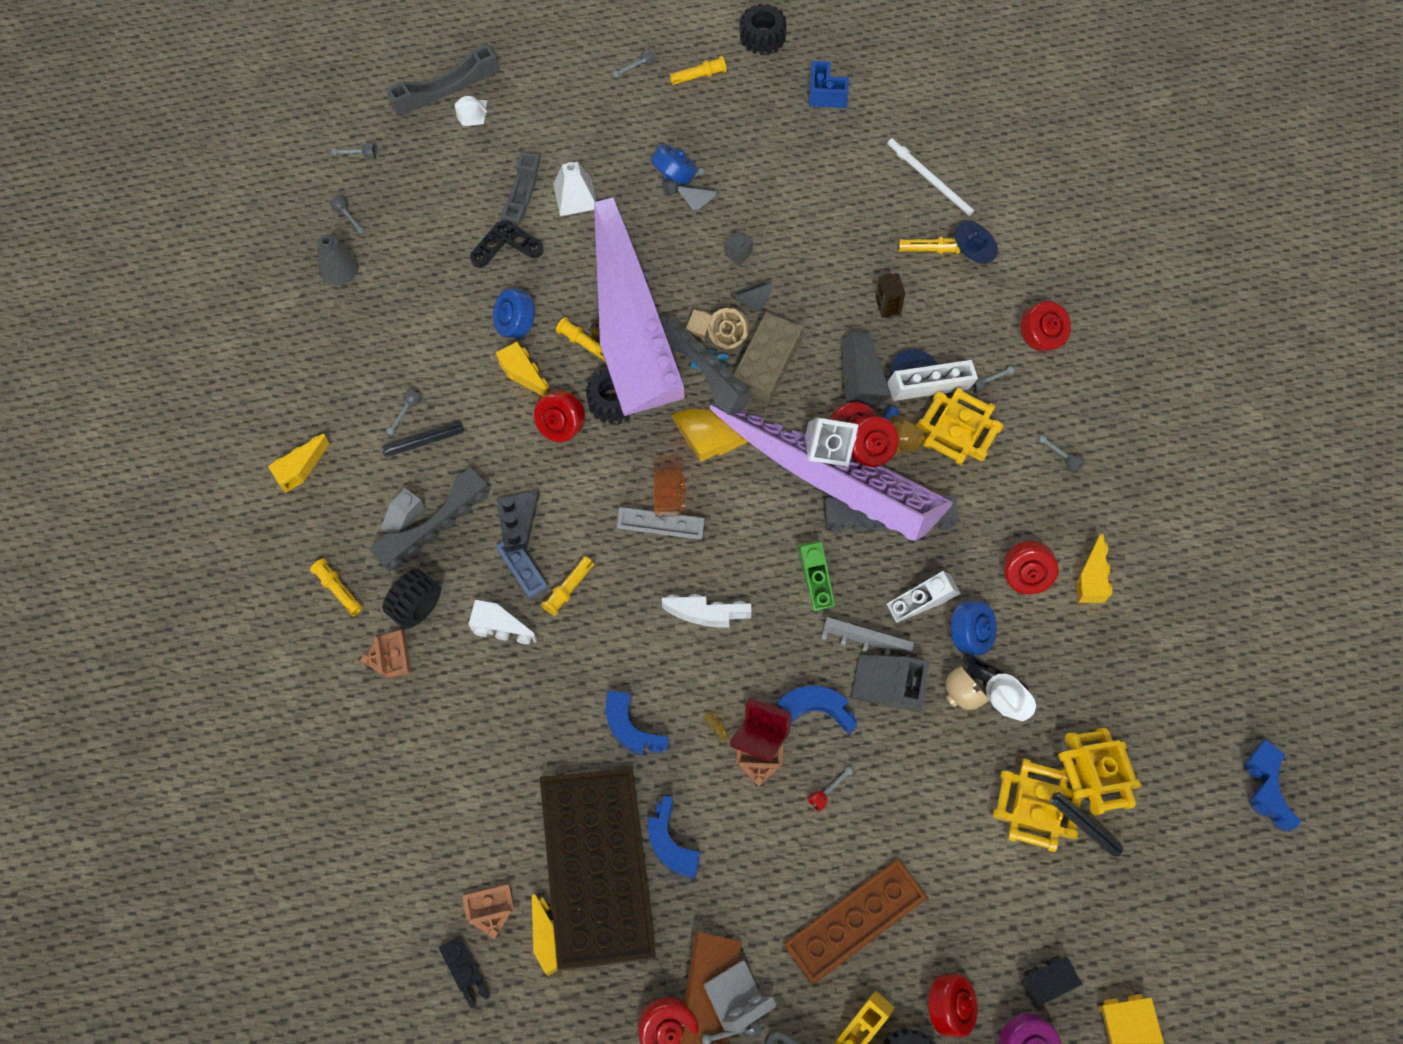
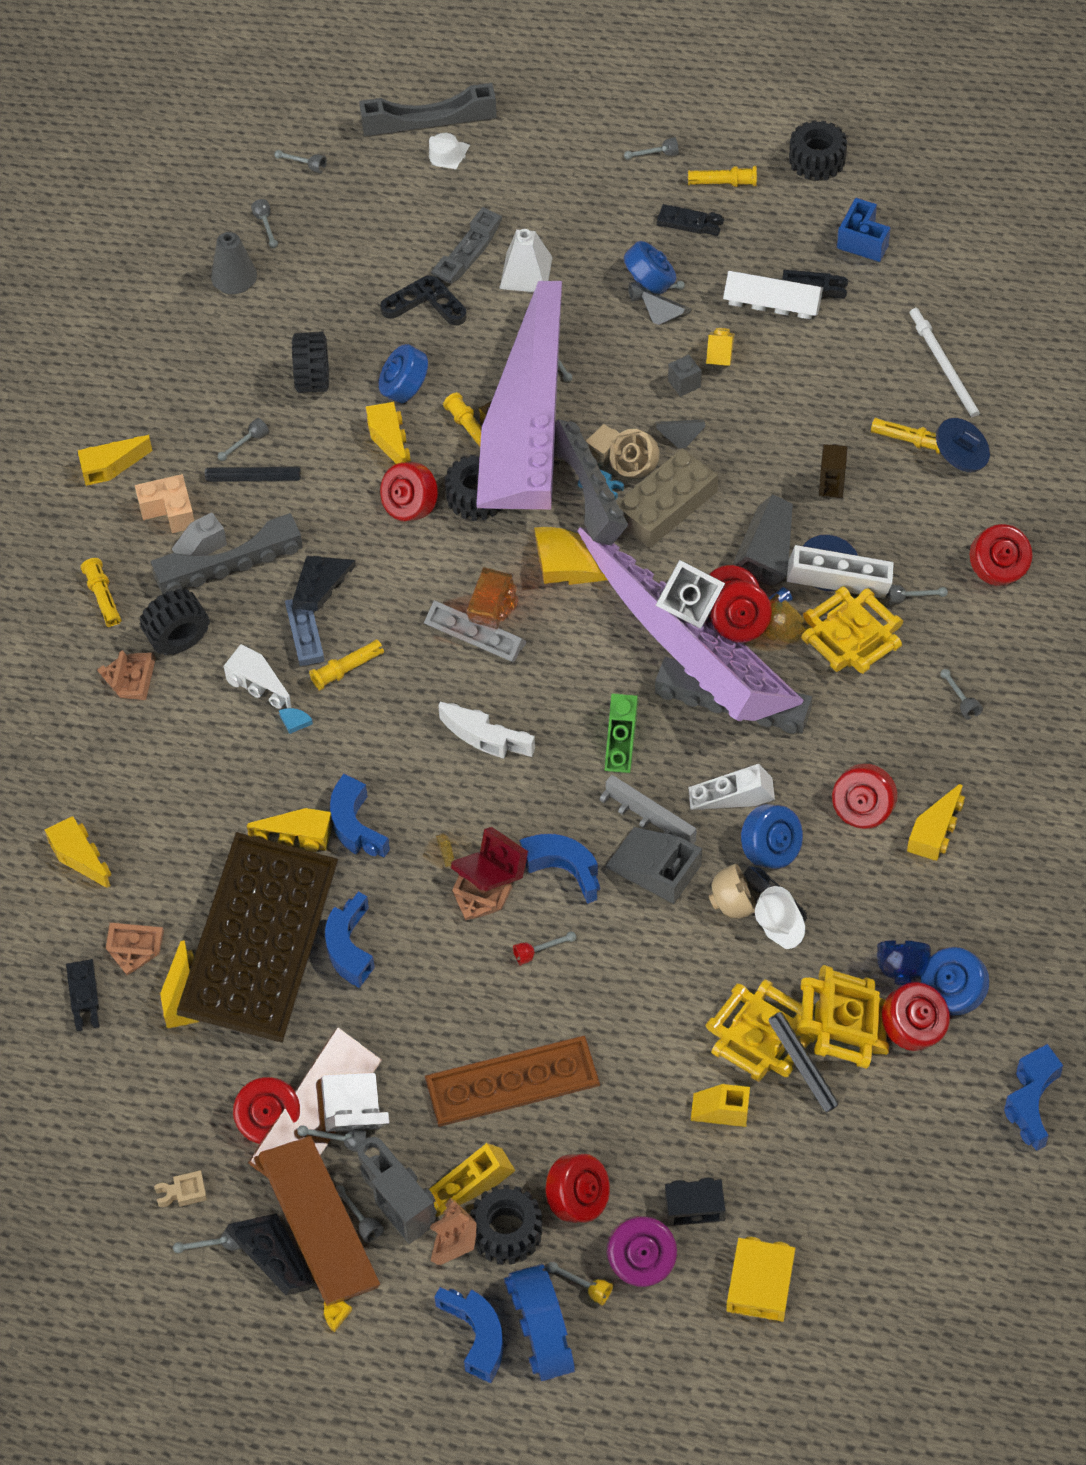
camera: 20 degrees right, 10 degrees down
(361, 484) = (168, 498): none -> light nougat brick
(402, 836) = (73, 849): none -> yellow slope
(435, 327) = (310, 362): none -> black tyre
(544, 650) = (295, 719): none -> dark azure tile
(593, 747) = (310, 826): none -> yellow slope
(686, 114) = (690, 220): none -> black hinge
(756, 215) = (720, 347): none -> yellow slope
(779, 158) = (772, 293): none -> white brick
(804, 141) = (836, 282): none -> black hinge
(1035, 885) = (721, 1105): none -> yellow slope
(1124, 704) = (903, 961): none -> clear blue cylinder
(1153, 750) = (915, 1016): none -> red wheel
(1169, 707) = (958, 978): none -> blue wheel

